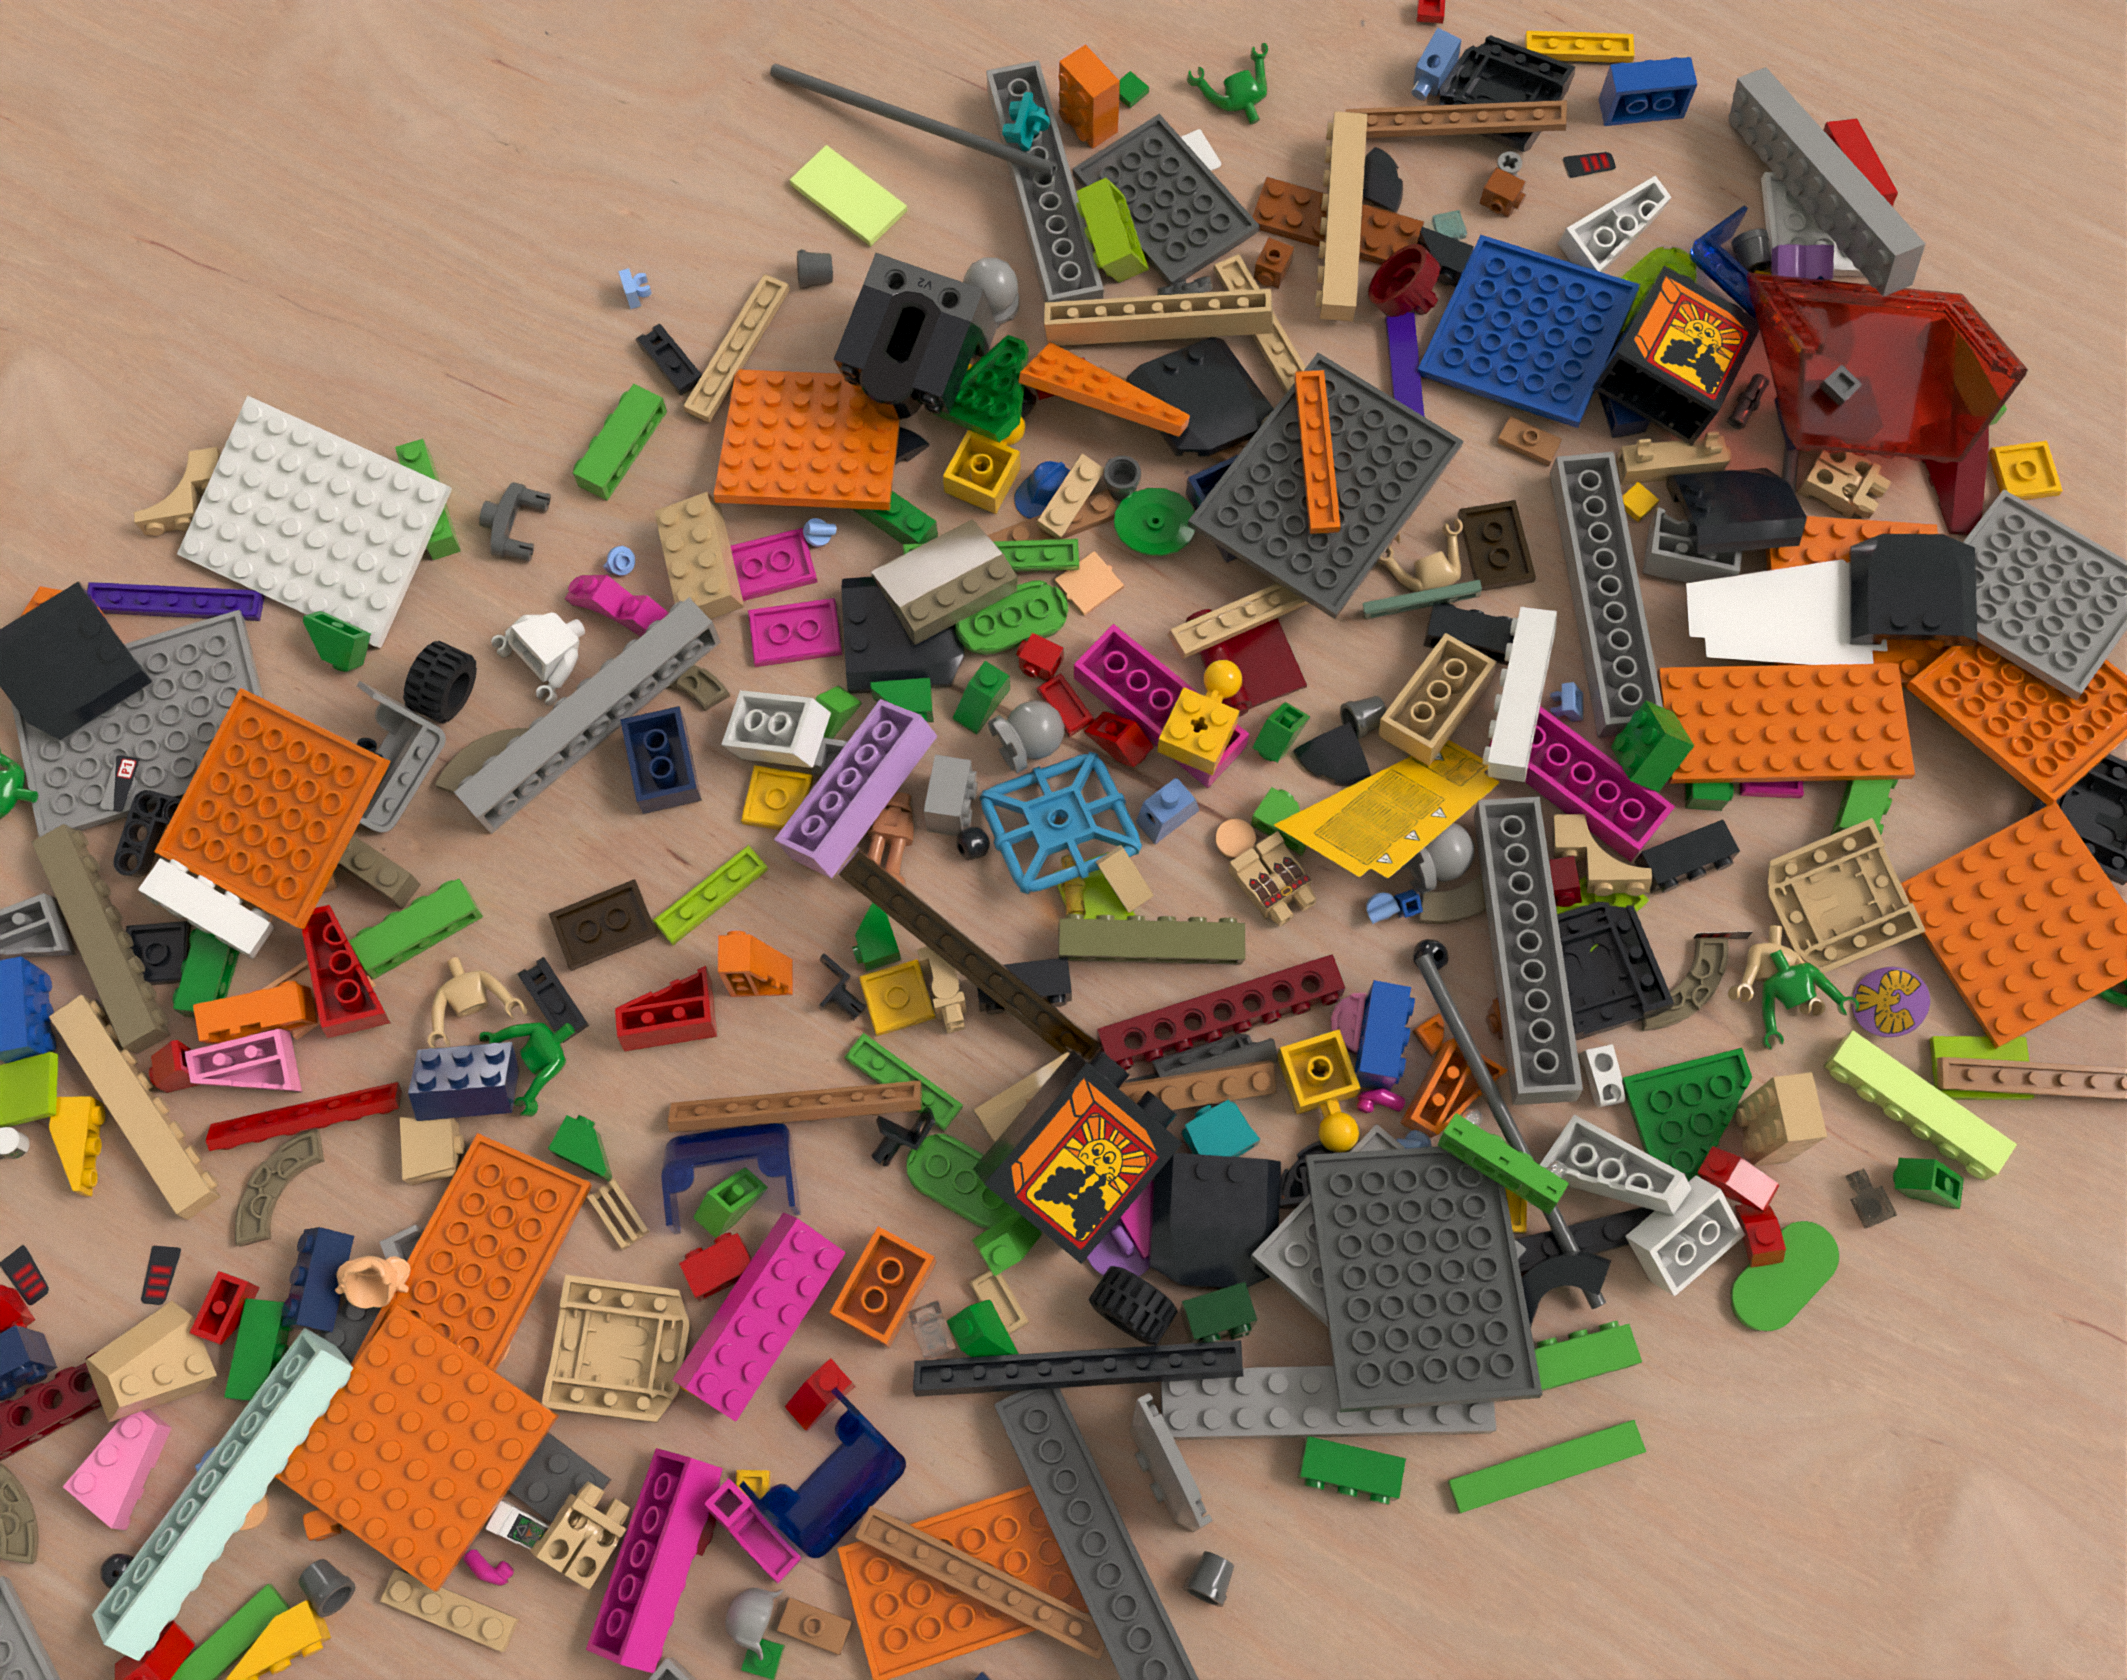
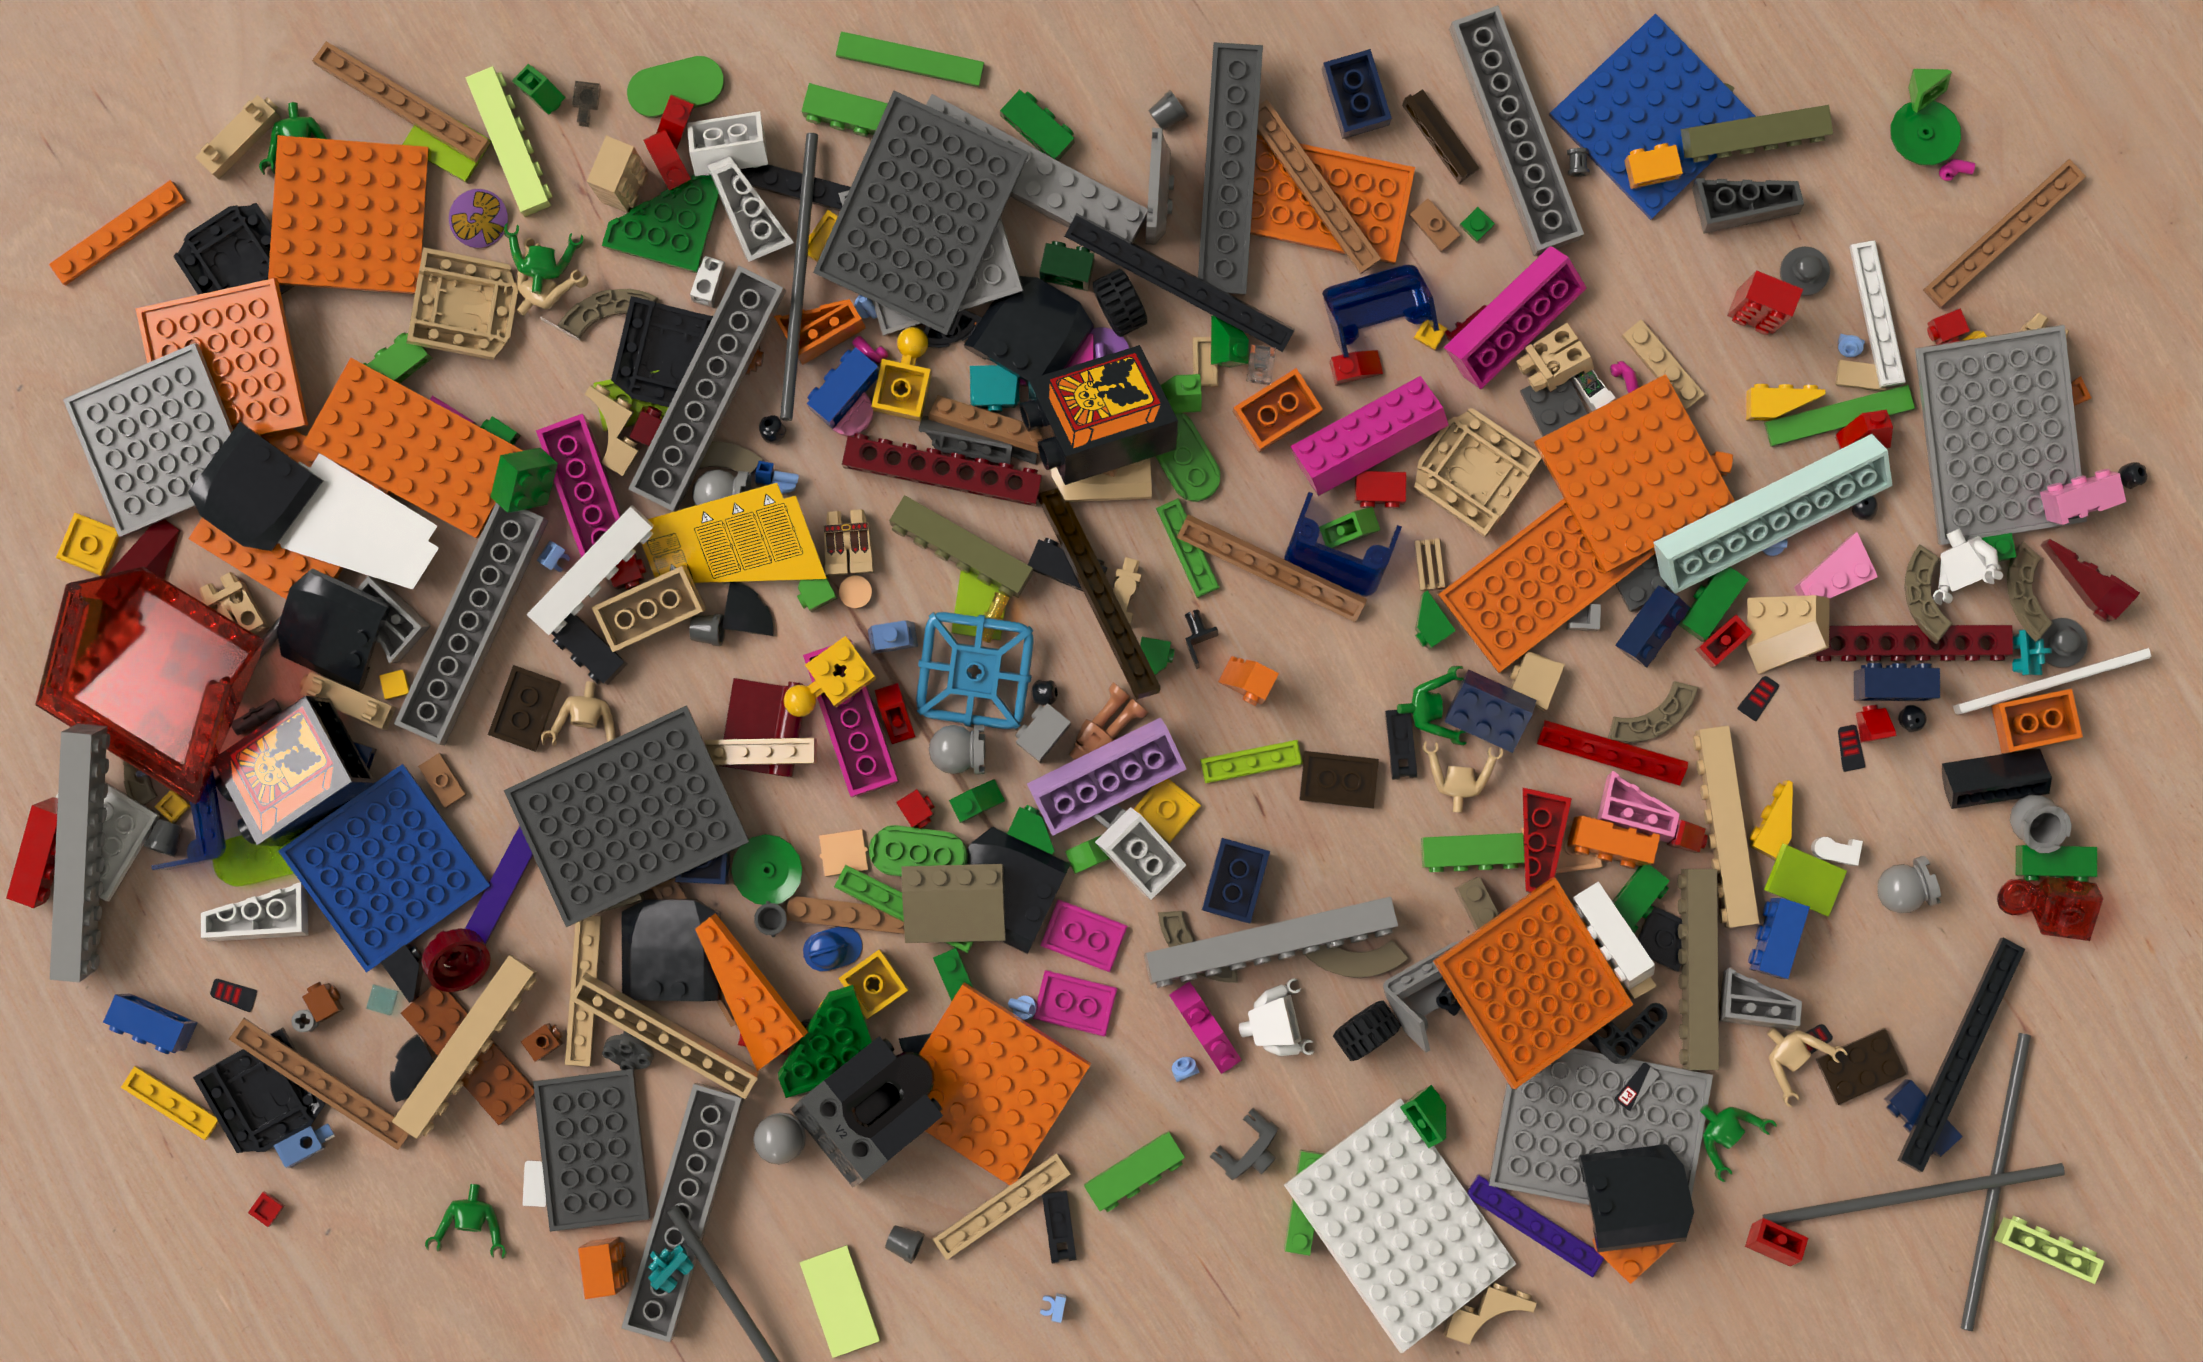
camera: 150 degrees left, 15 degrees up
(326, 1587) = (1735, 421): dark grey piece -> none
(372, 1280) = (1616, 601): light nougat hair -> none
(670, 1015) = (1324, 682): red wedge -> none
(699, 555) = (1125, 1030): tan brick -> none
(749, 1617) = (1472, 250): light grey hair -> none
(752, 1531) = (1445, 298): dark pink arch -> none
(897, 997) = (1159, 611): yellow tile -> none
(897, 1135) = (1211, 508): black bracket -> none
(1068, 704) = (917, 764): red tile -> none
(1070, 496) = (819, 923): tan plate -> none
(1111, 230) = (656, 1133): lime brick -> none
(1124, 878) = (954, 599): tan tile -> none
(1132, 89) = (557, 1273): green tile -> none
(1280, 732) = (774, 651): green slope -> none
(1317, 452) = (620, 840): orange plate -> none
(1422, 599) = (609, 692): sand green tile -> none
(1431, 1034) = (806, 376): orange tile -> none
(1477, 726) = (629, 573): none -> red brick
(1502, 1163) = (820, 251): bright green piece -> none
(1563, 1269) = (824, 166): black arch -> none
(1689, 856) = (546, 396): black brick -> none
(1803, 261) = (138, 799): medium lavender brick -> none
(1840, 385) = (193, 672): dark grey plate -> none

